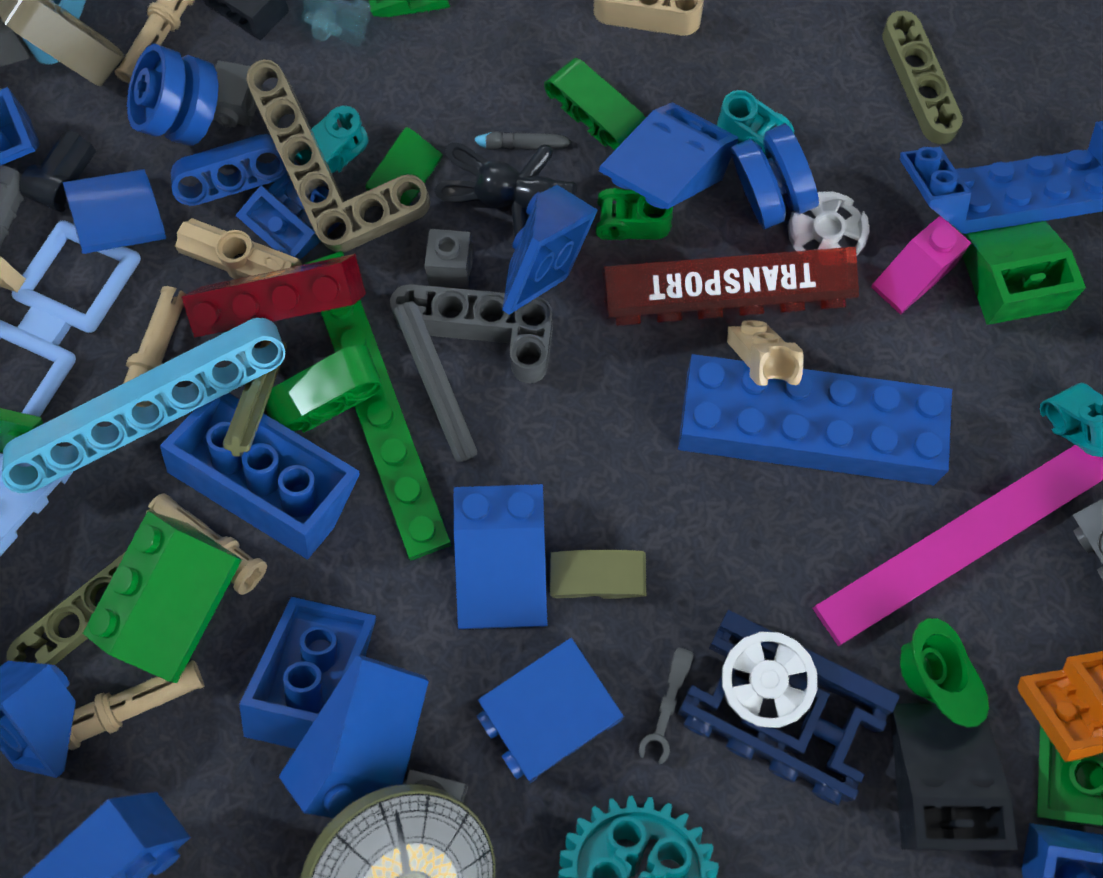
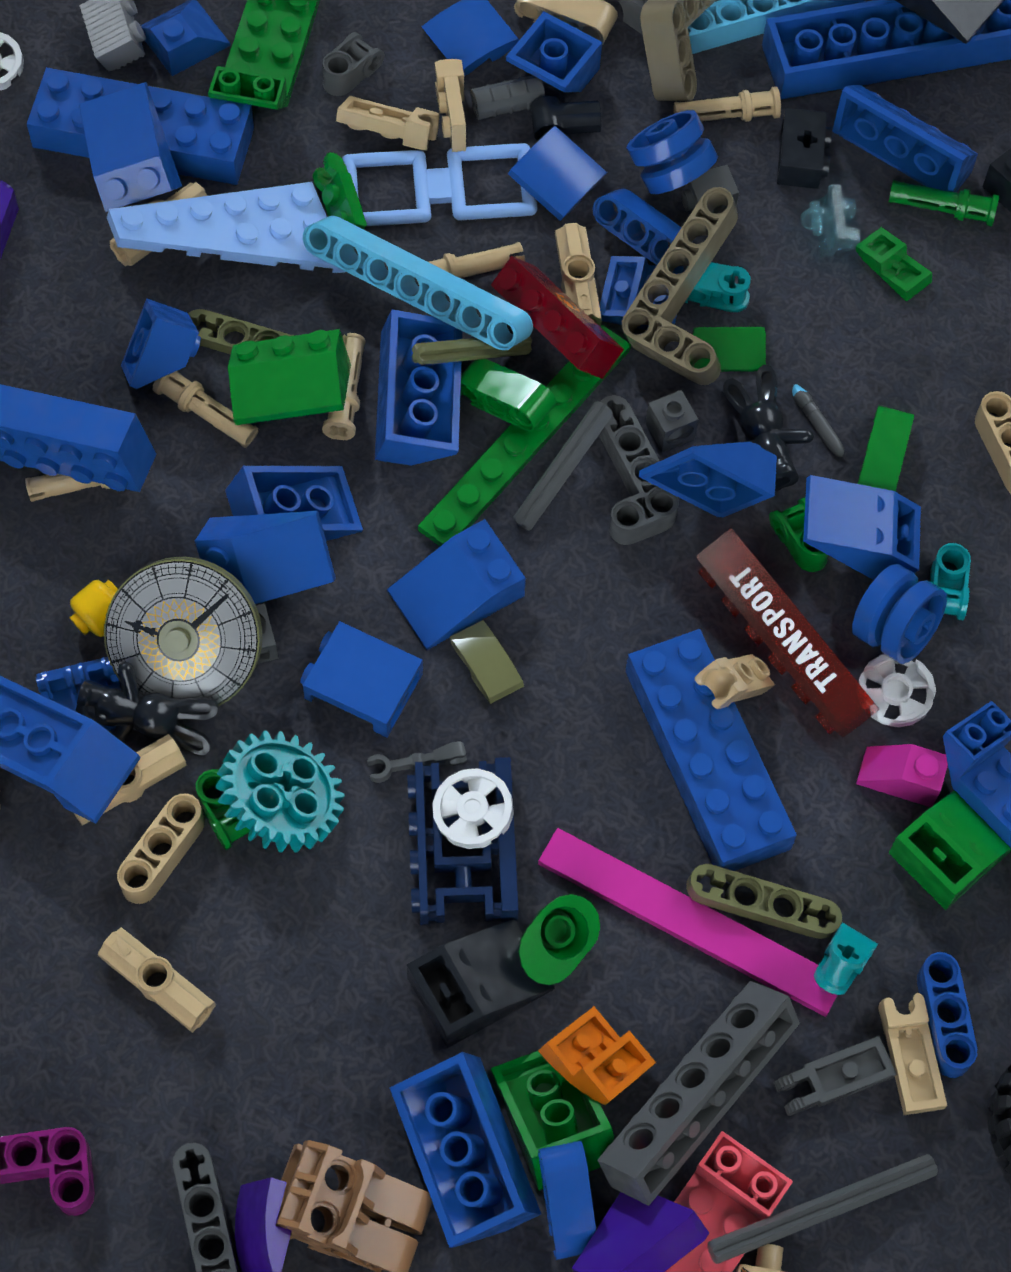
camera: 55 degrees right, 5 degrees down
(988, 458) = (765, 894): none -> olive beam

